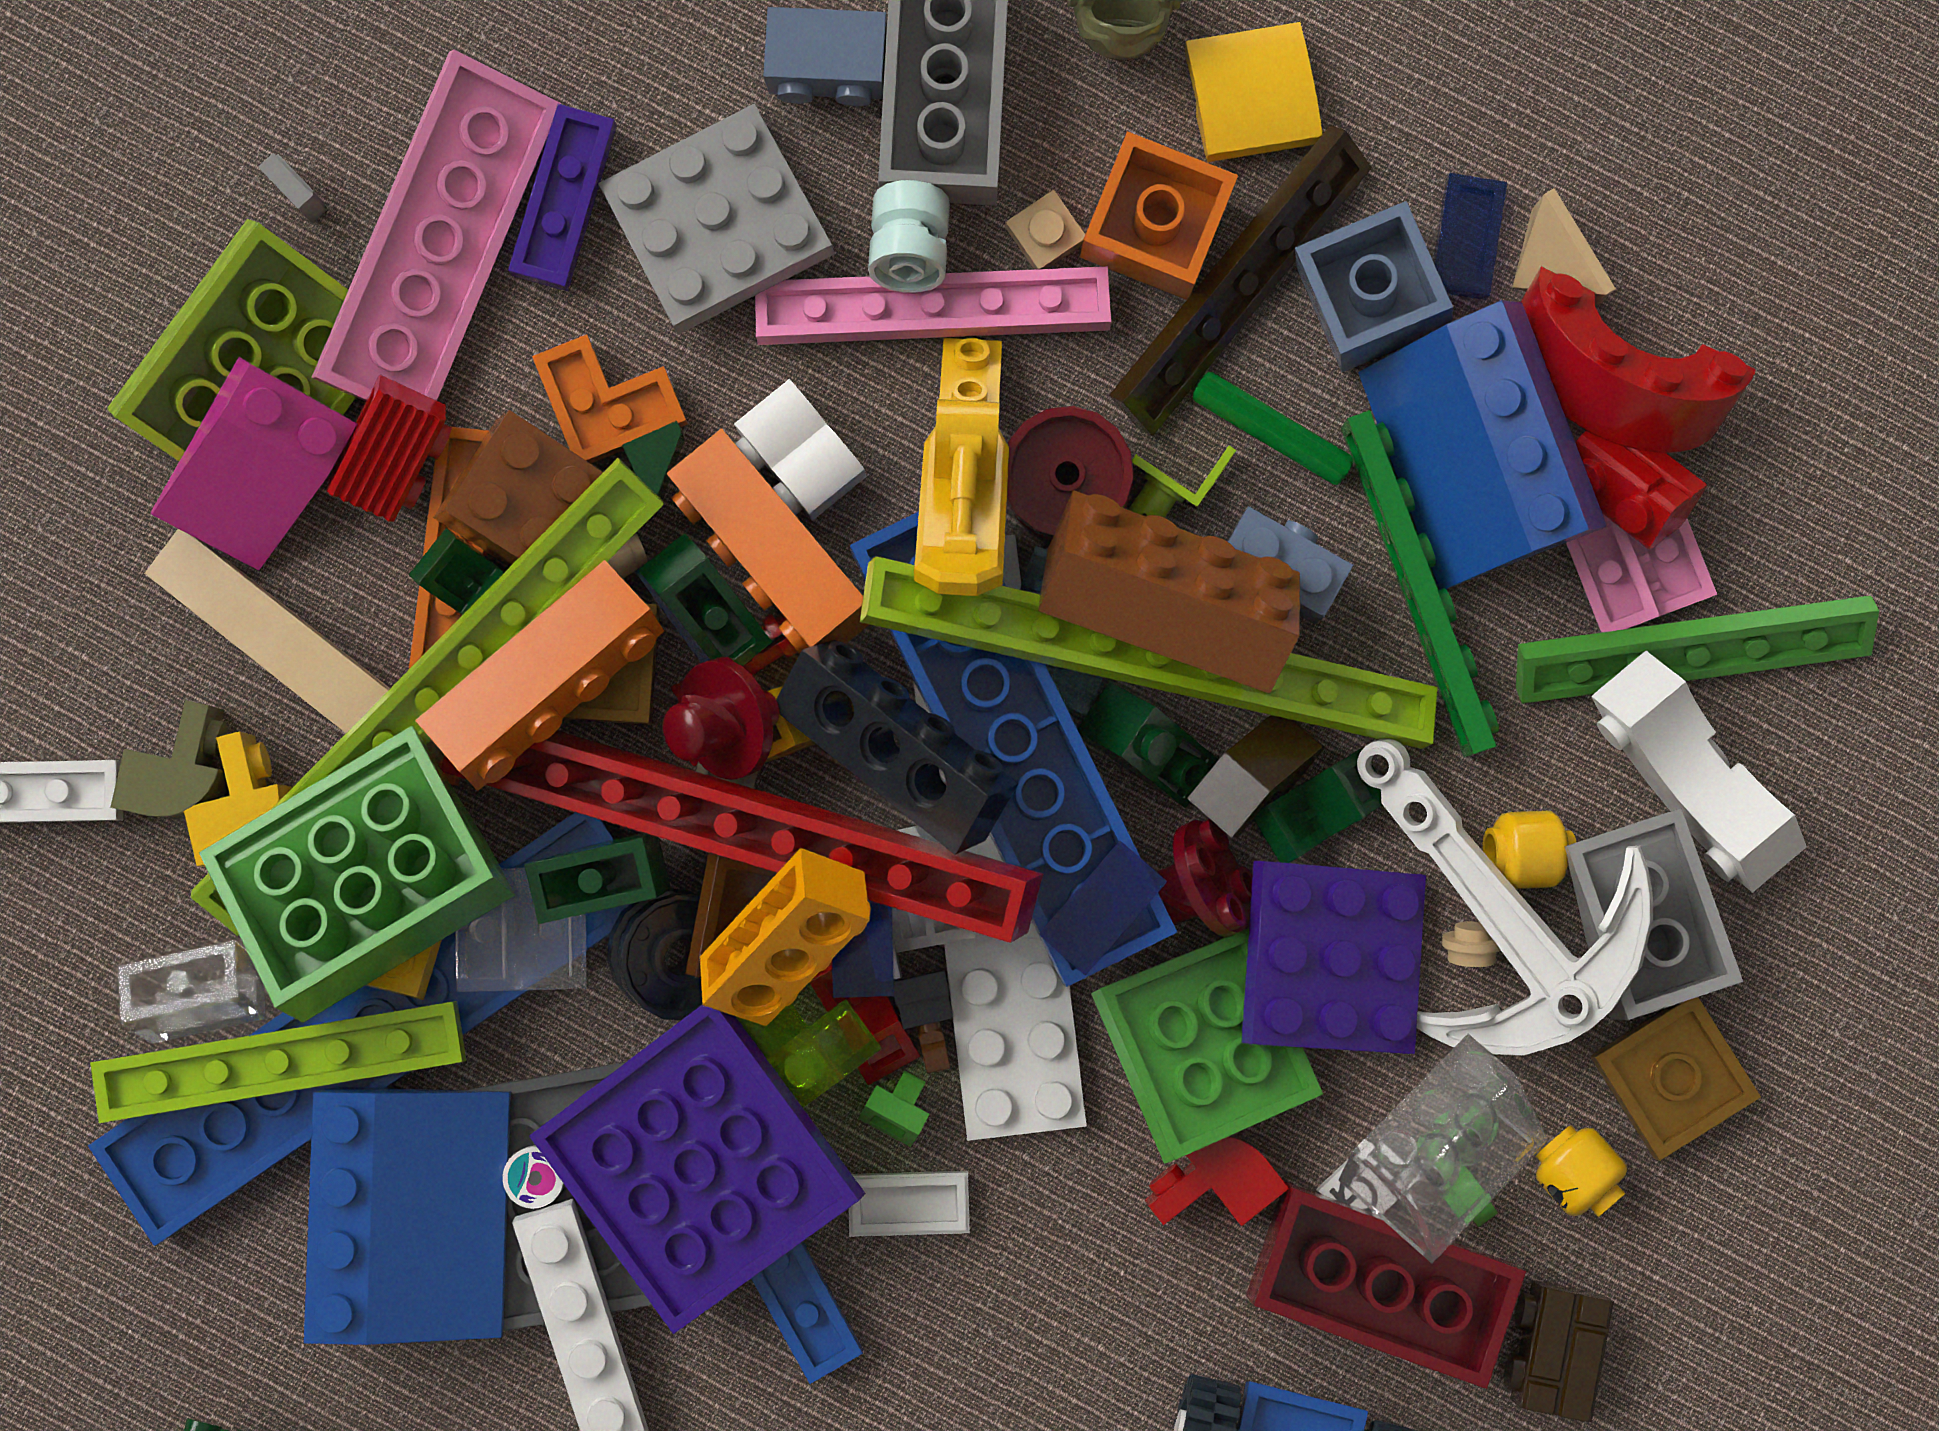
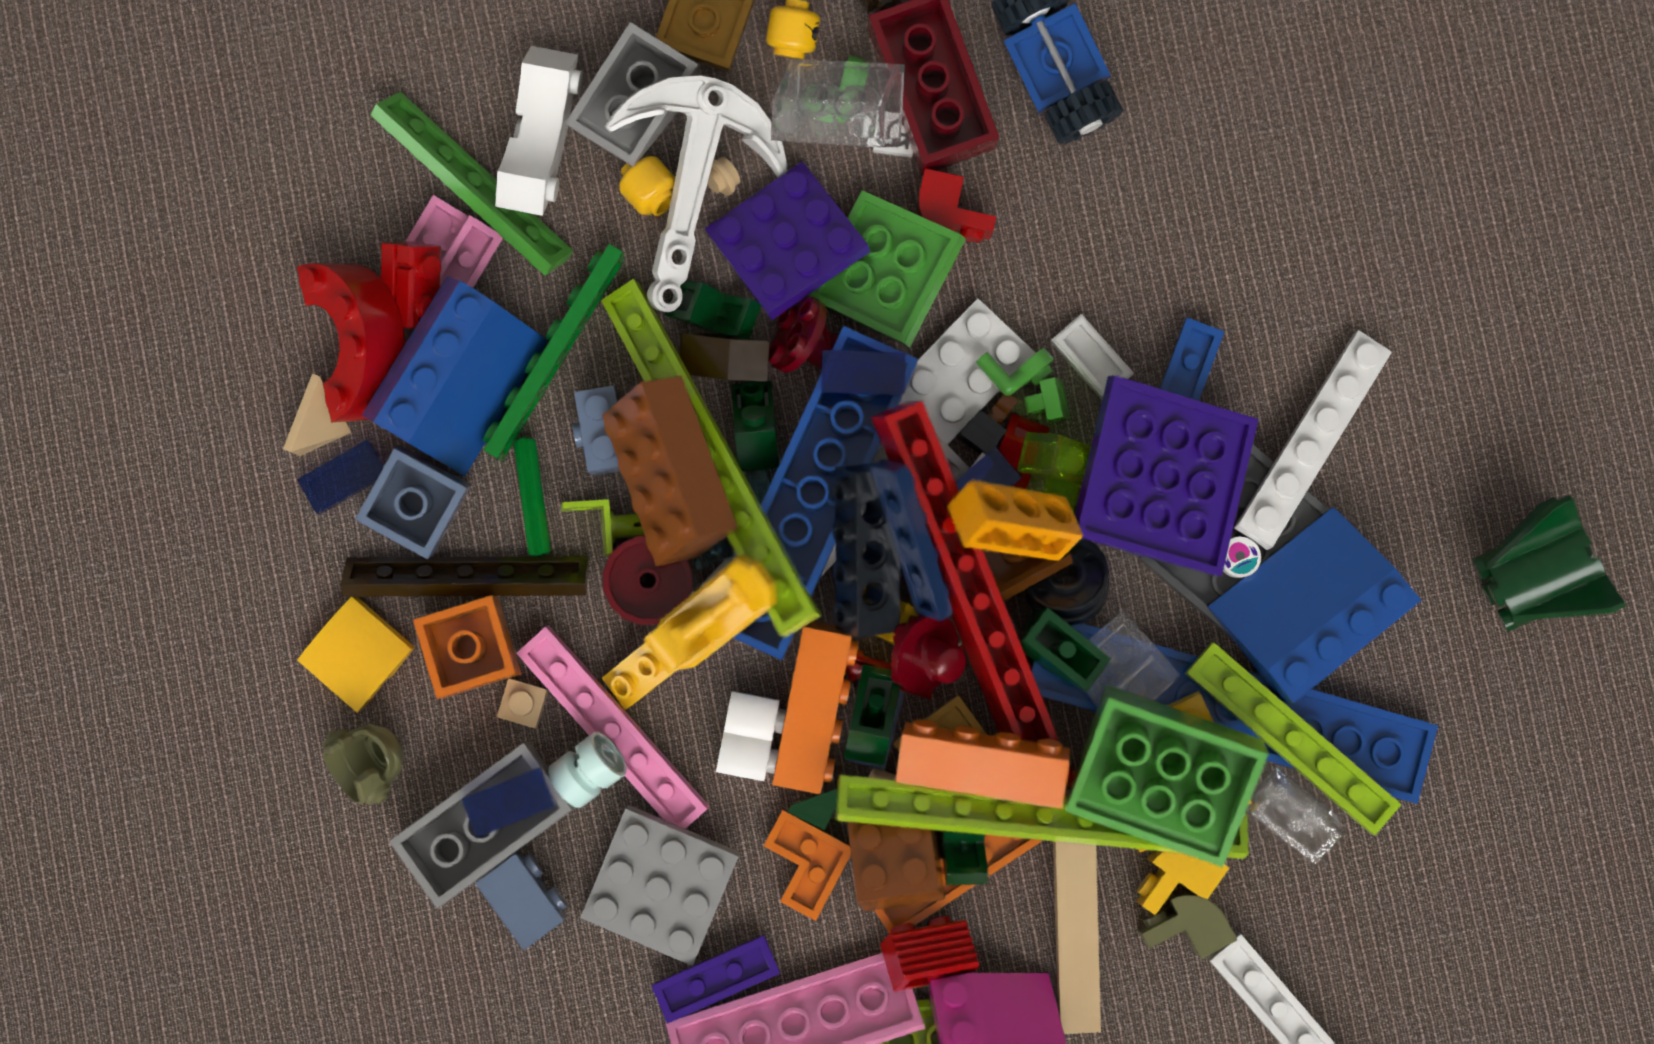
camera: 130 degrees left, 0 degrees up
(861, 800) = (911, 539): none -> dark blue plate
(943, 116) = (508, 802): none -> clear blue tile
(947, 1122) = (1033, 371): none -> bright green plate

